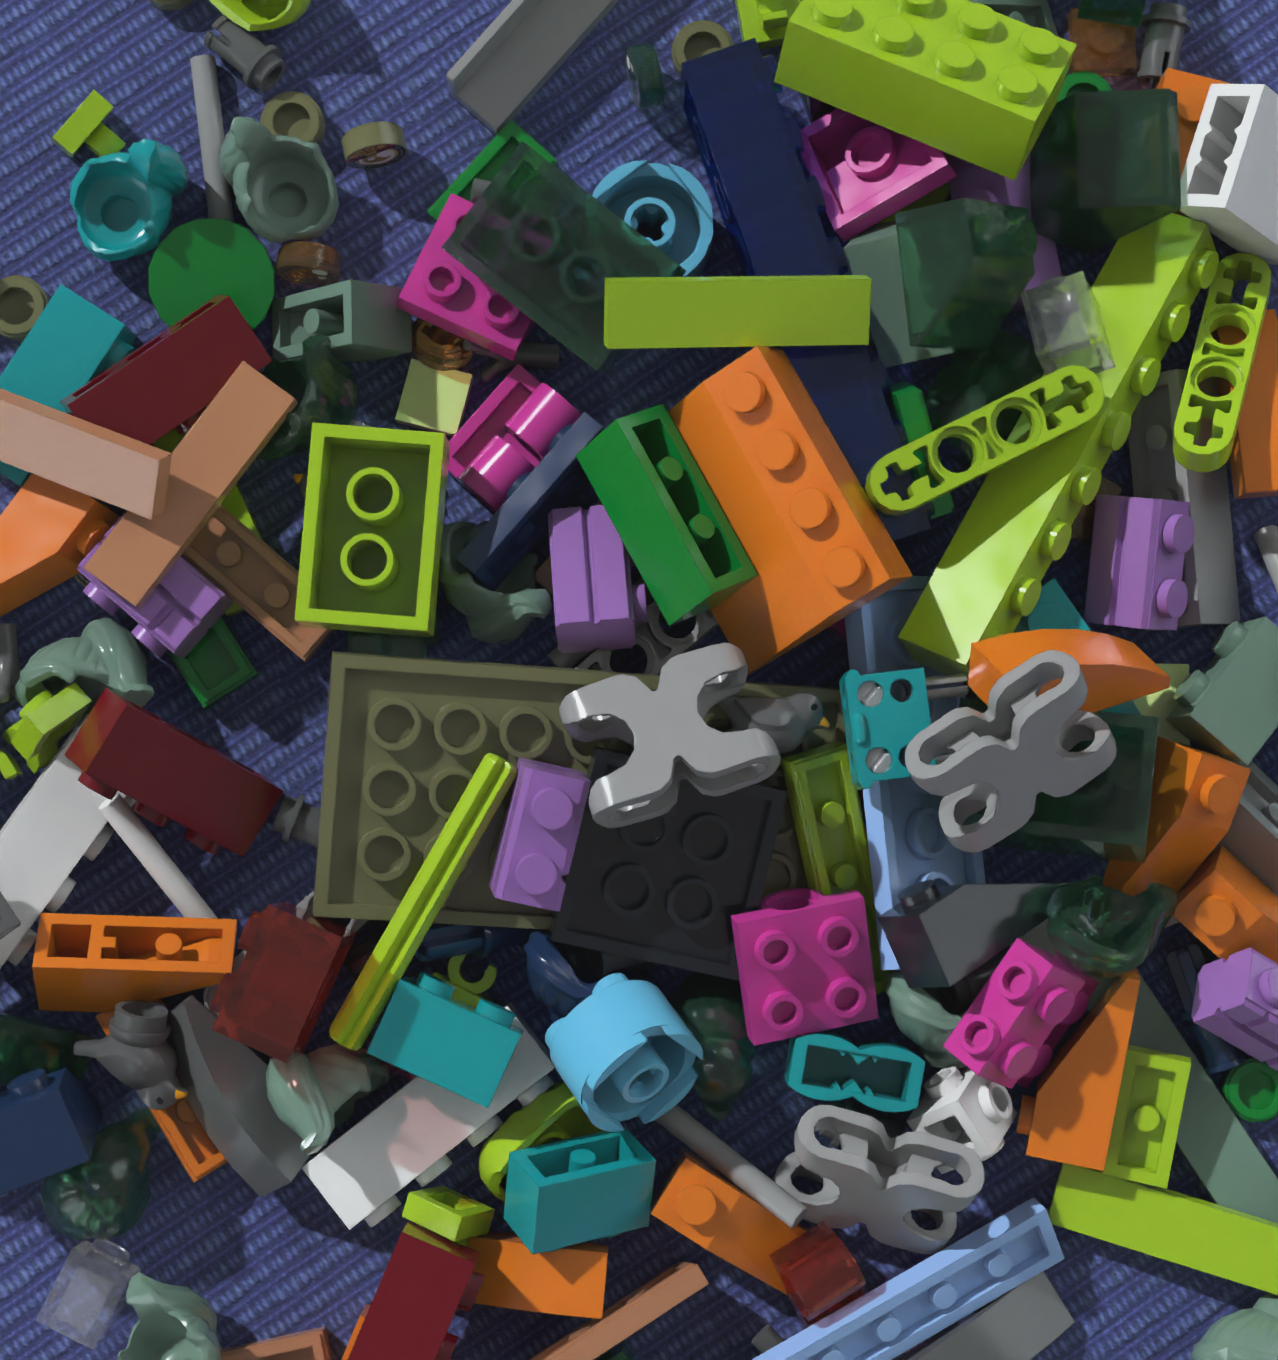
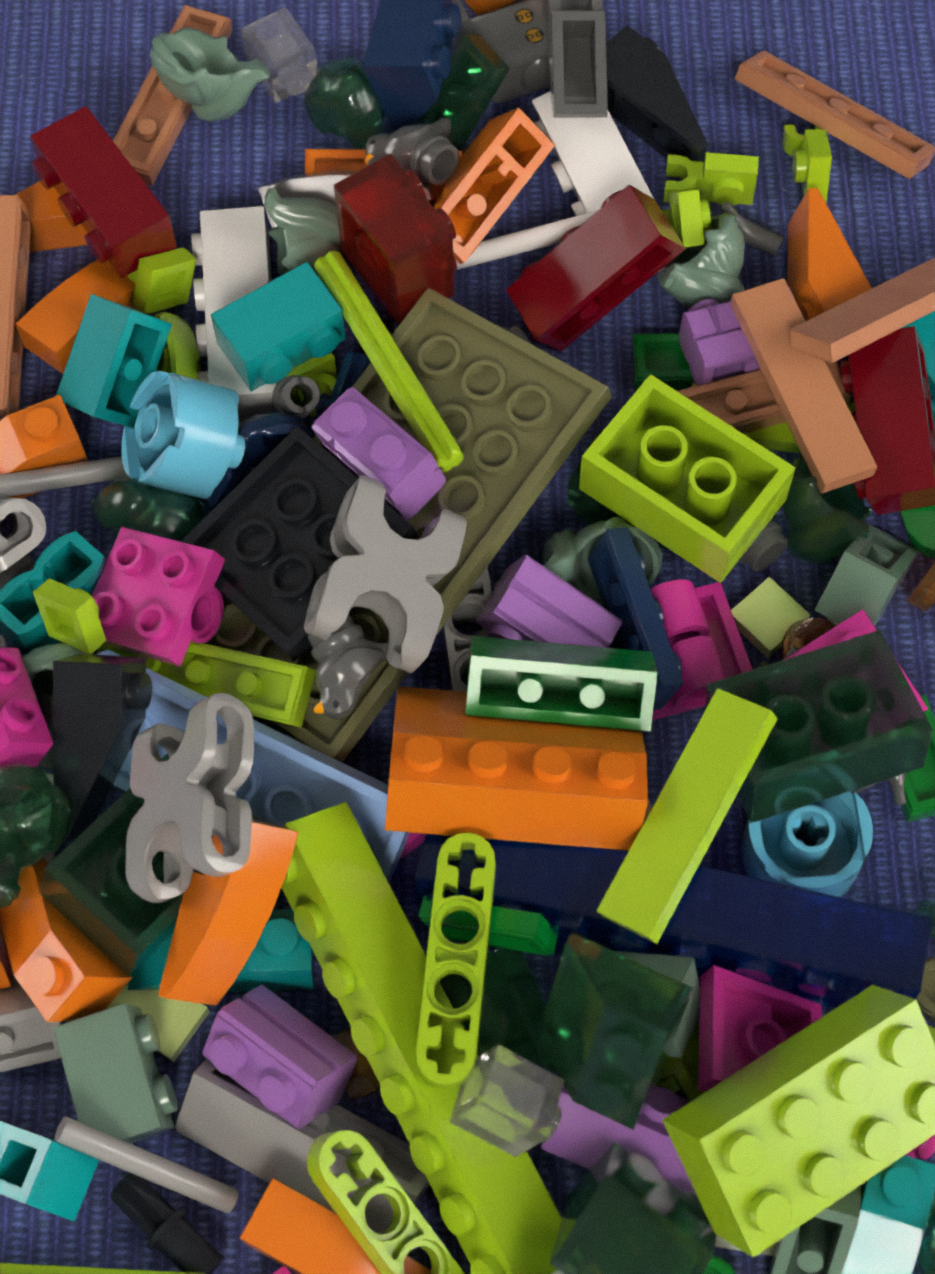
camera: 125 degrees right, 20 degrees down
(513, 968) = (282, 400): none -> dark grey pin
(881, 1018) = (70, 615): none -> lime plate
(882, 726) = (284, 743): teal piece -> none

